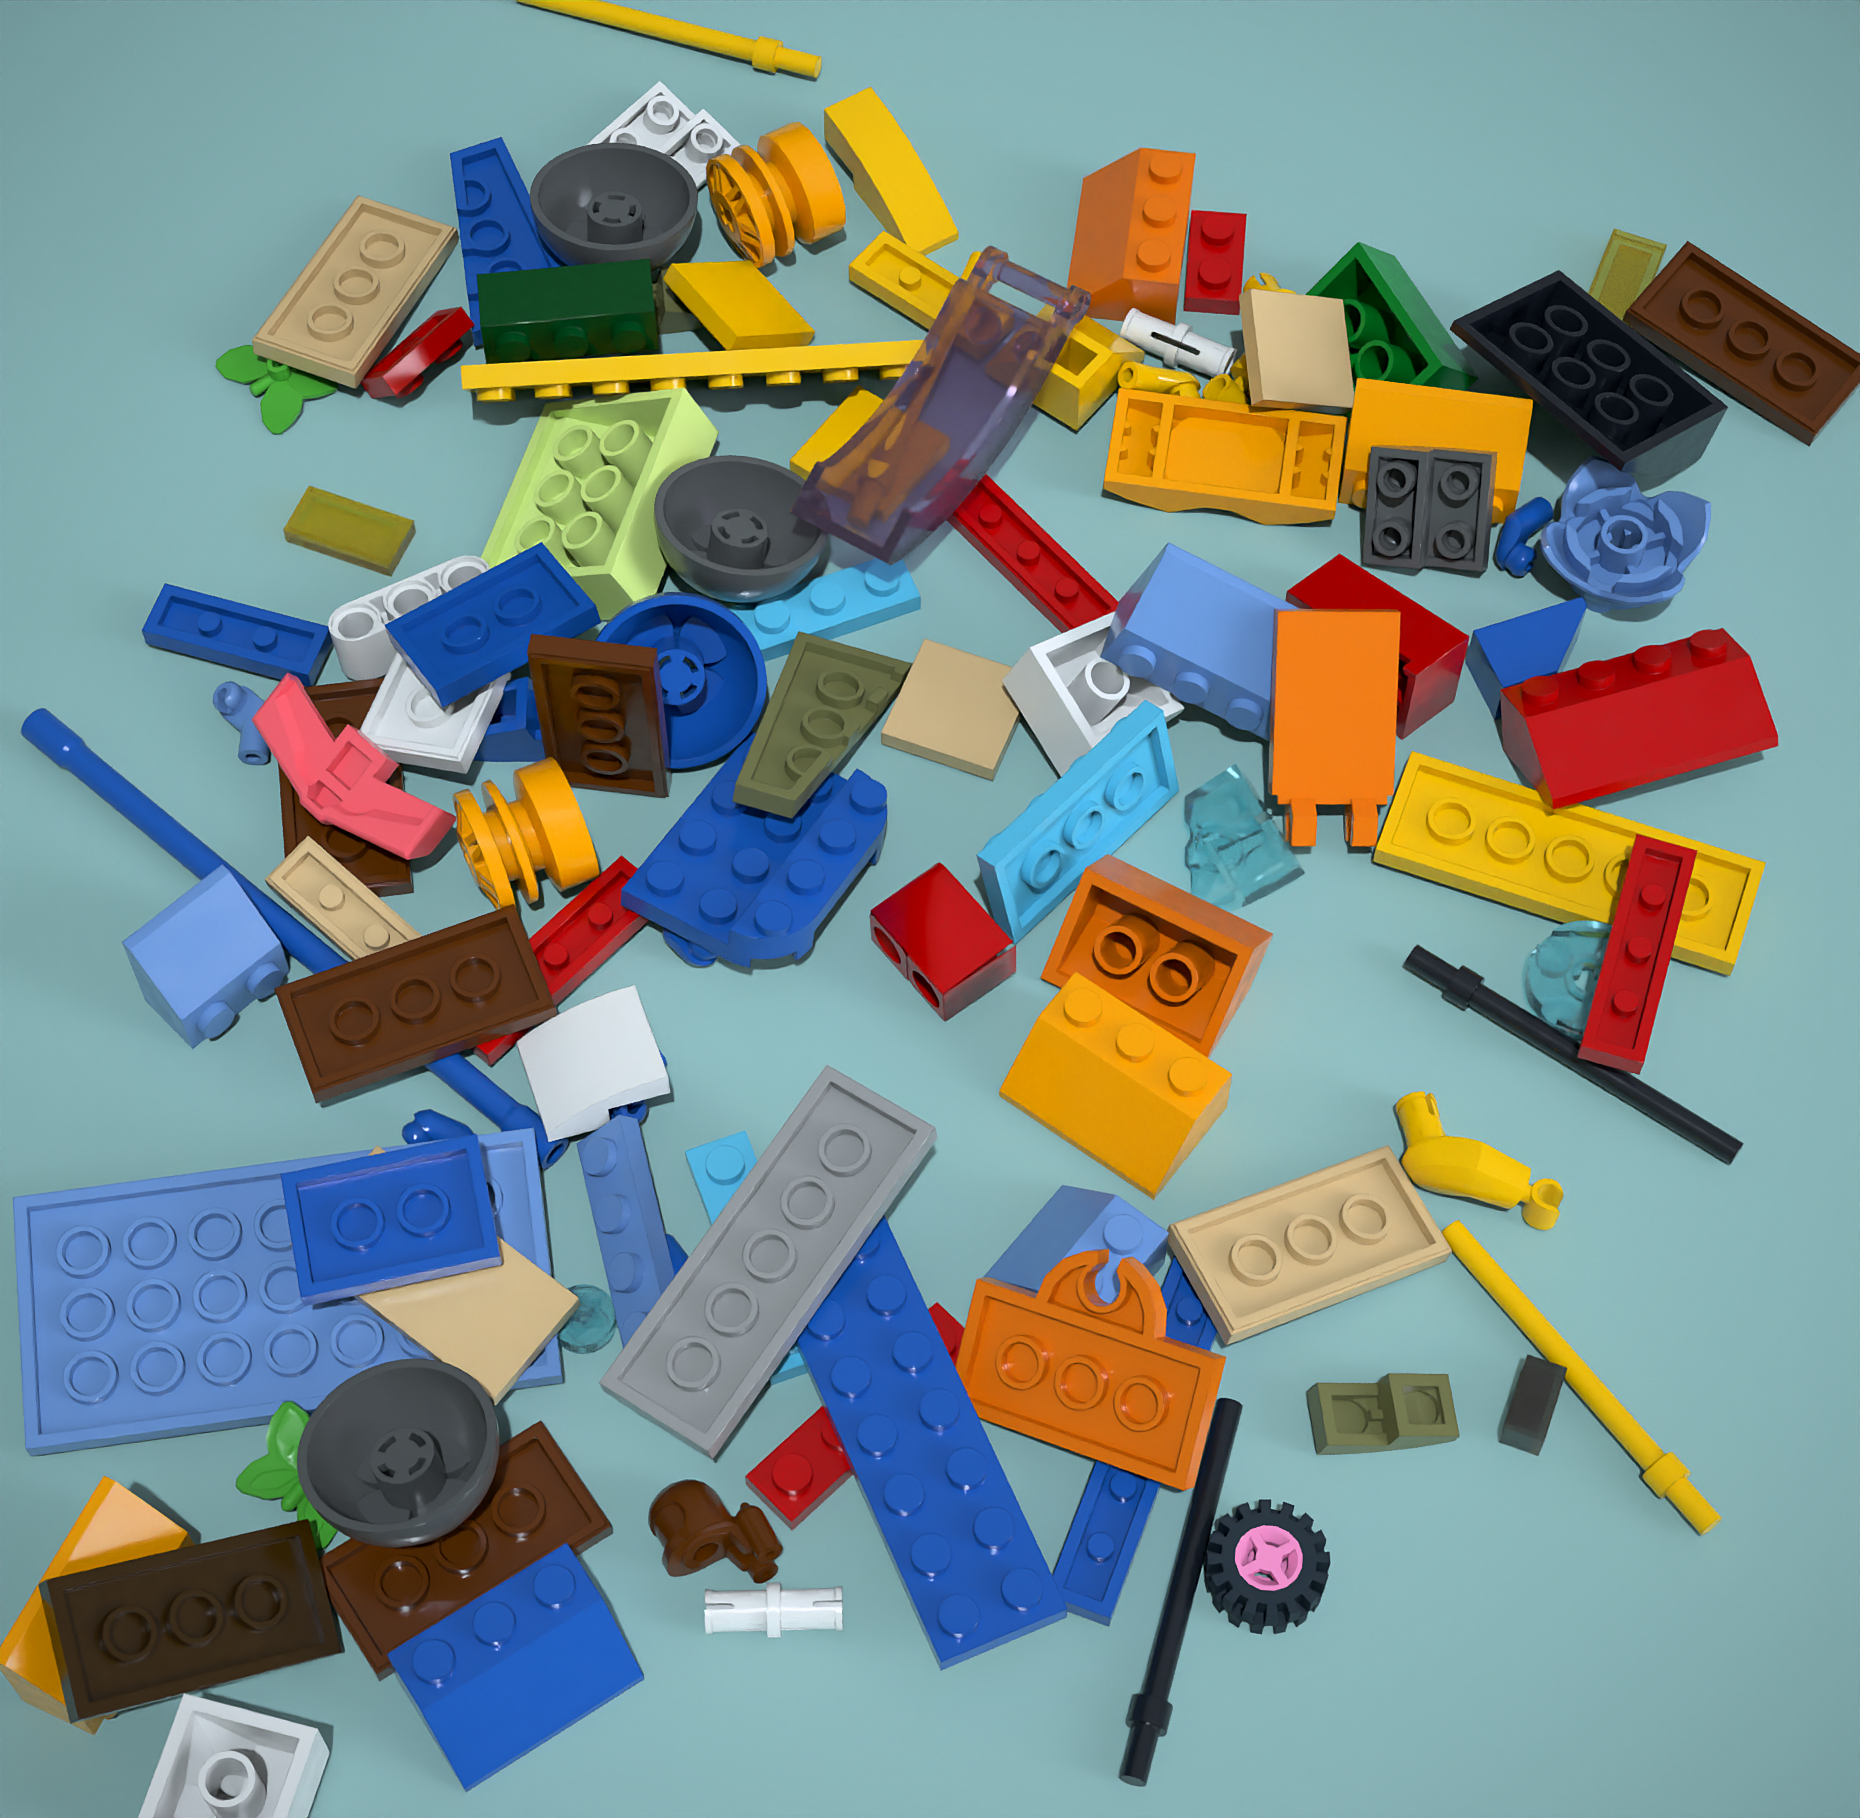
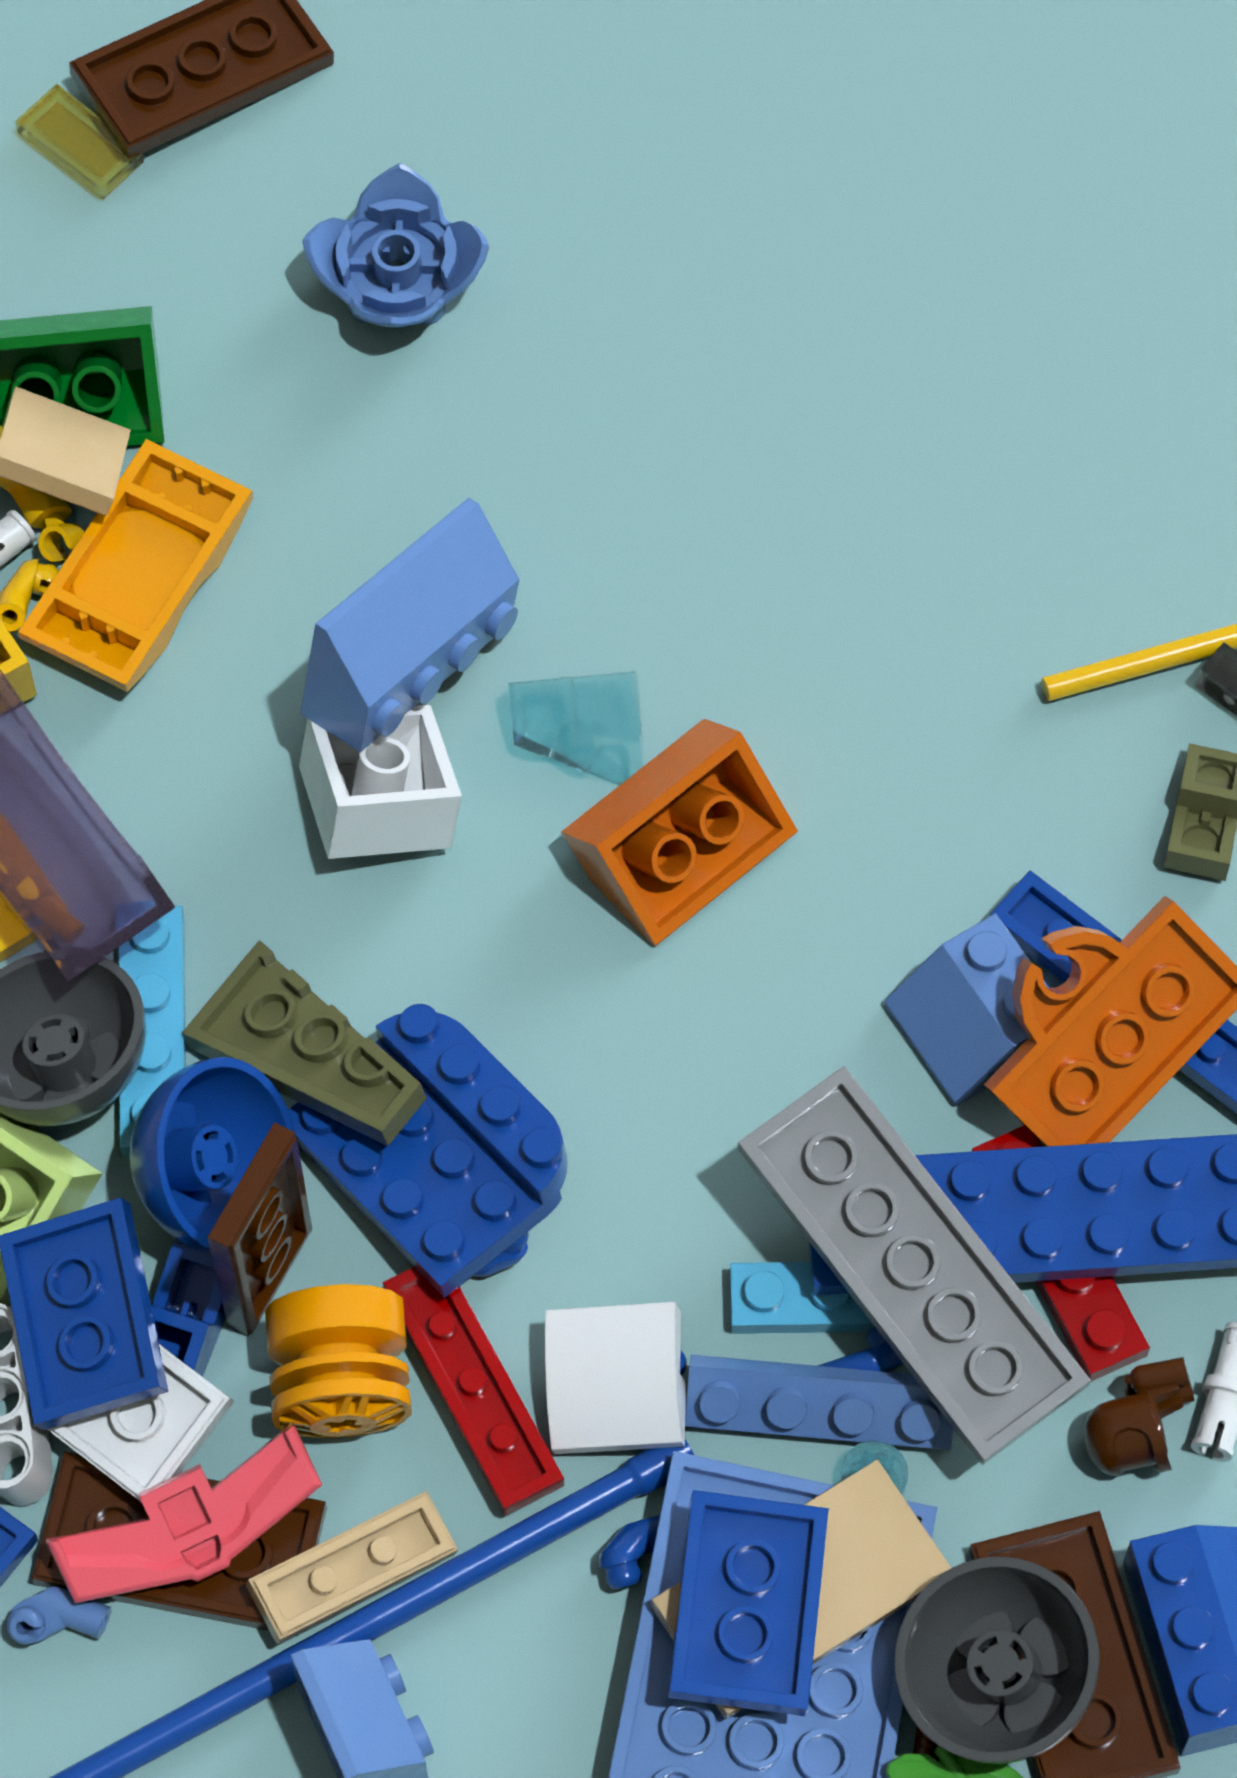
camera: 70 degrees left, 5 degrees up
(415, 1003) = (483, 1529): reddish brown tile -> none
(942, 941) = (595, 1014): red piece -> none
(954, 711) = (325, 918): tan tile -> none
(1030, 558) = (197, 782): red tile -> none
(1079, 821) = (525, 848): medium azure plate -> none
(1116, 1085) = (807, 914): light orange slope -> none
(1307, 1244) = (1030, 808): tan tile -> none
(1333, 717) = (517, 572): orange tile -> none
(1428, 645) = (392, 508): red wedge -> none
(1429, 507) = (290, 404): dark grey slope -> none
(1436, 418) = (232, 374): light orange slope -> none
(1467, 989) = (813, 580): black bar -> none
(1469, 1166) = (999, 651): yellow arm -> none
(1517, 528) = (332, 342): blue arm -> none
(1523, 648) = (486, 392): blue slope -> none
(1554, 862) = (713, 445): yellow plate -> none
(1556, 966) = (844, 510): clear light blue plate -> none
(1595, 375) = (211, 201): black slope -> none
(1636, 718) = (601, 324): red slope -> none
(1637, 954) = (849, 419): red plate -> none

